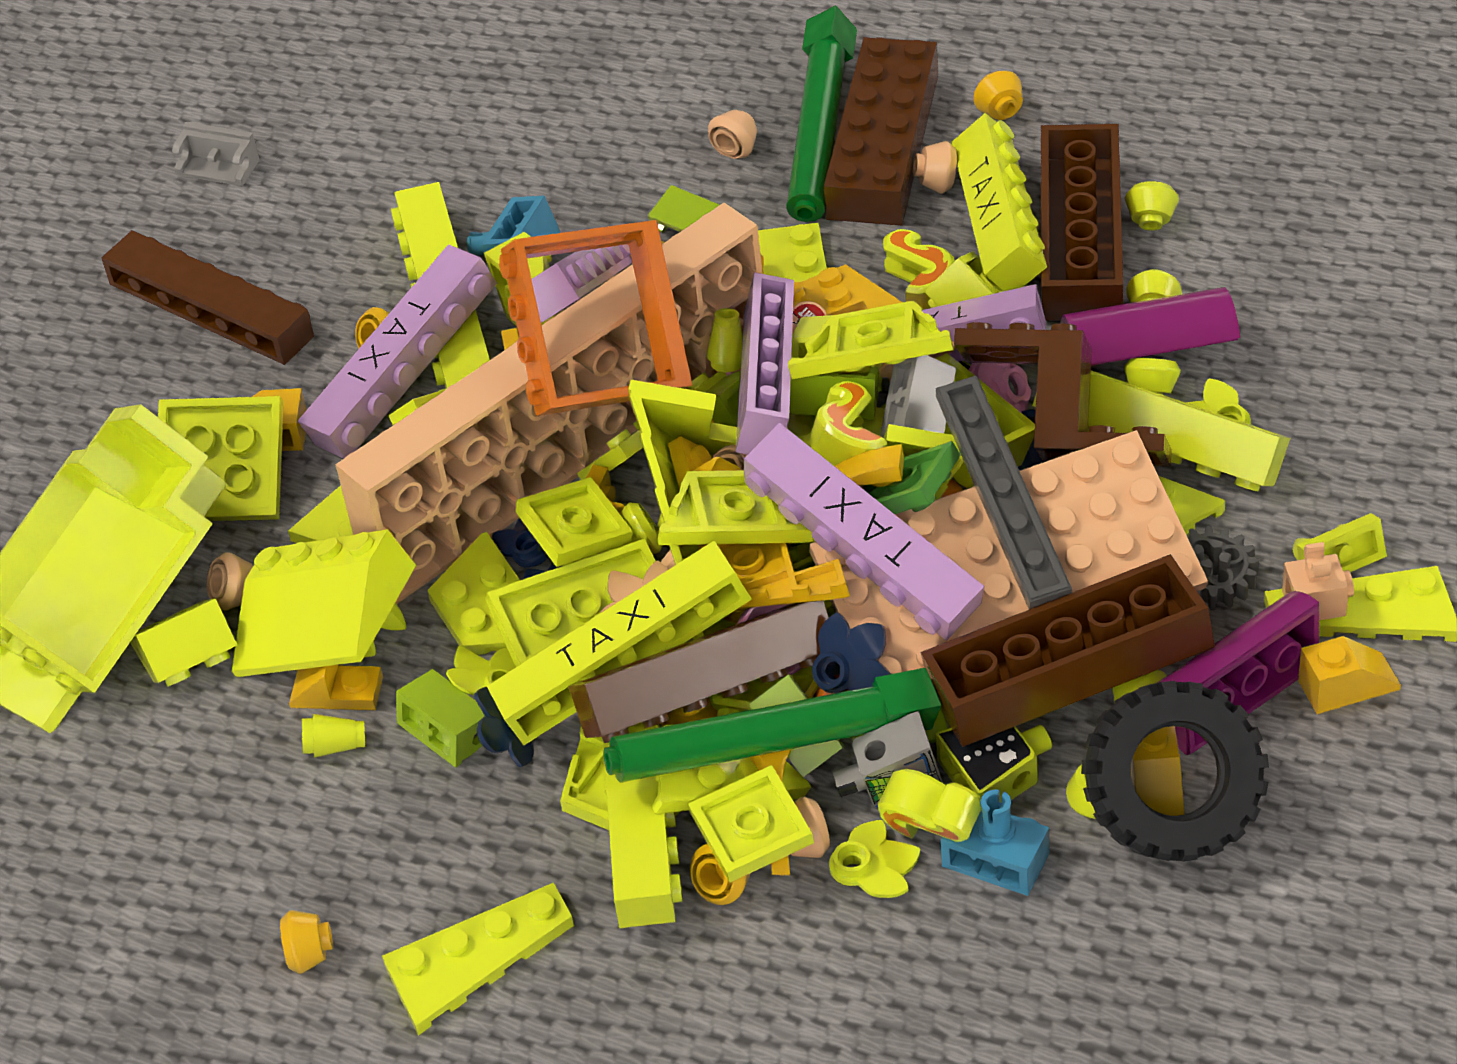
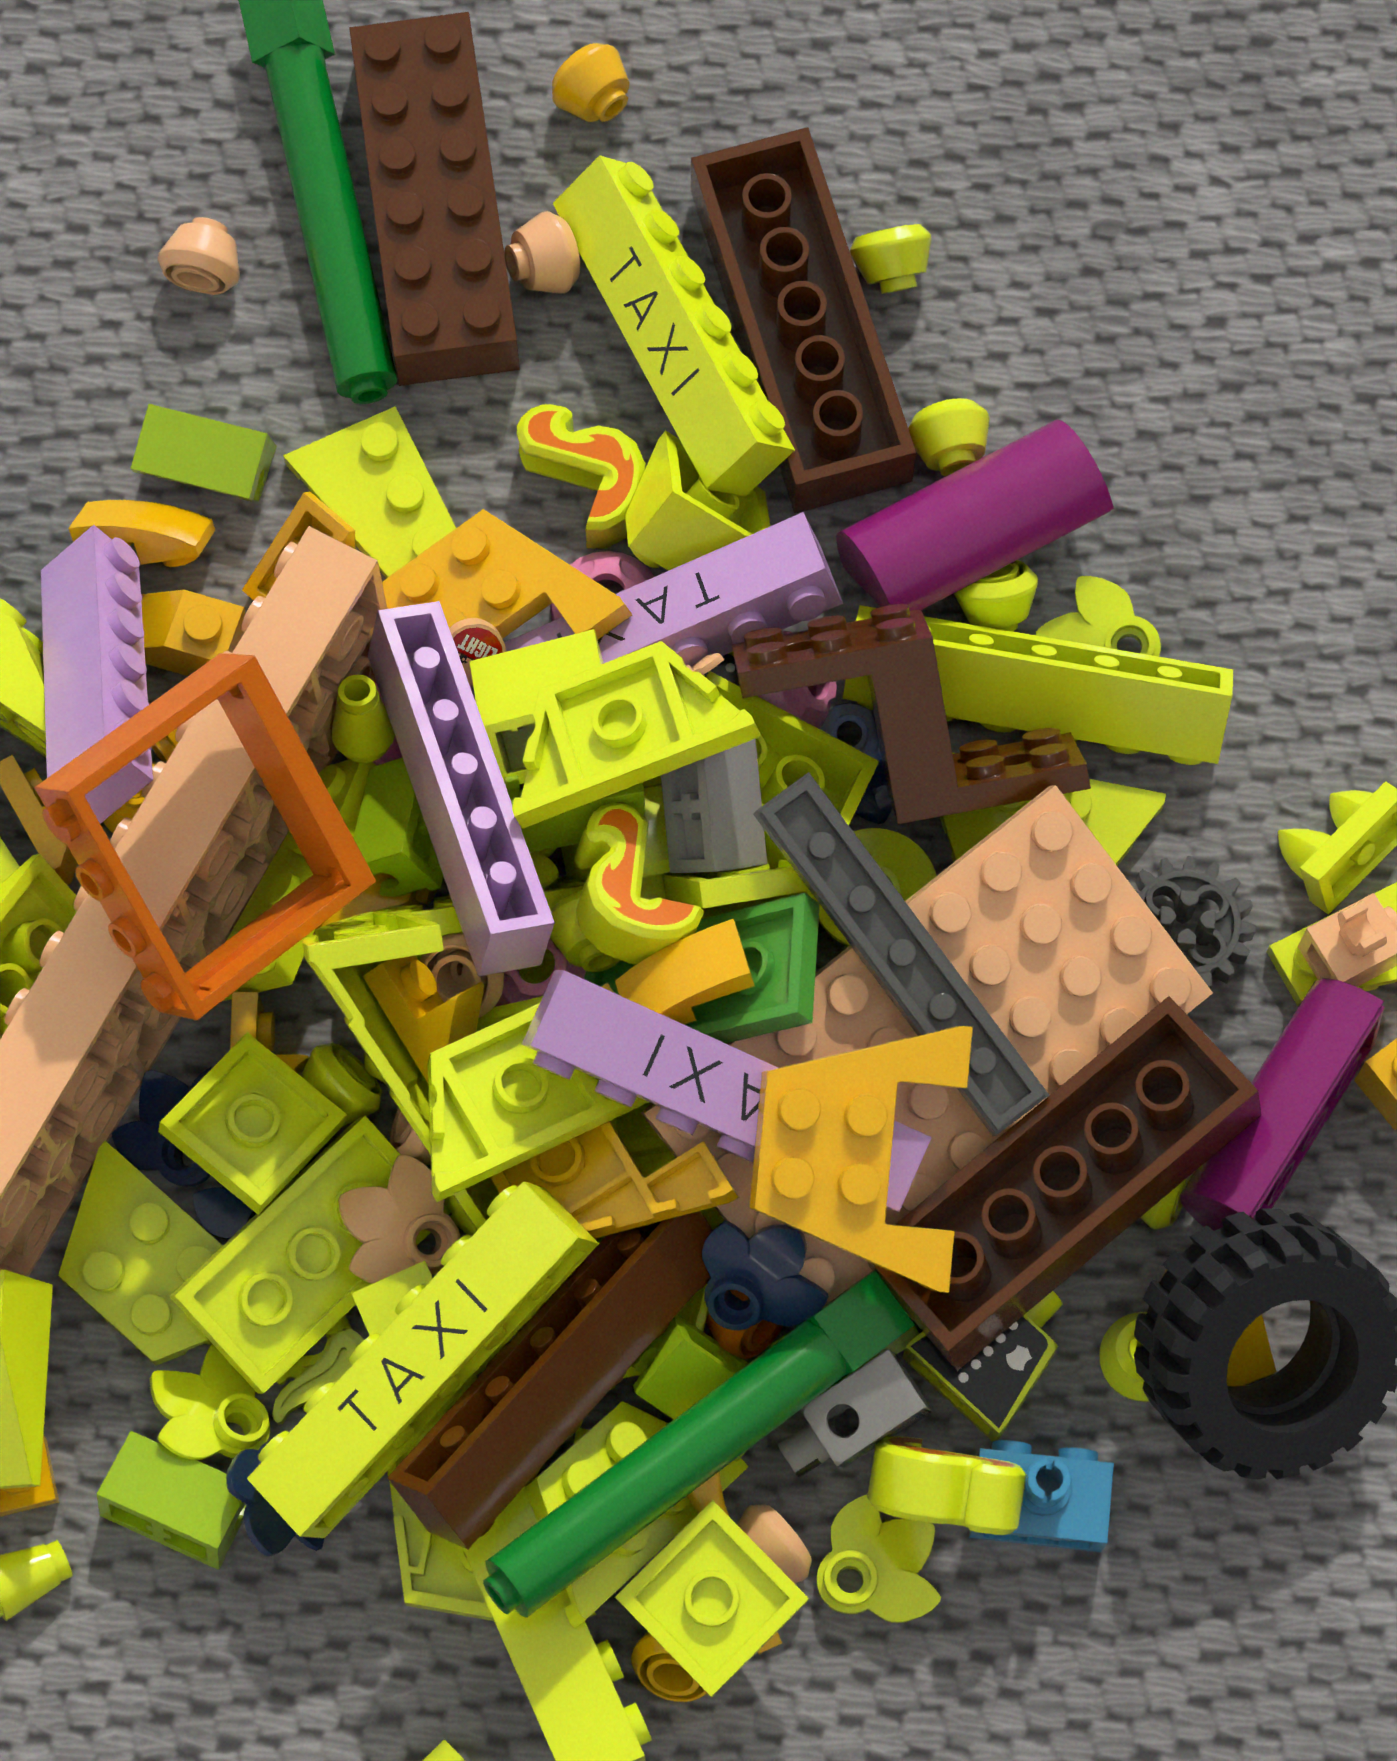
camera: 25 degrees left, 25 degrees up
(913, 568) = (829, 1149): none -> yellow wing

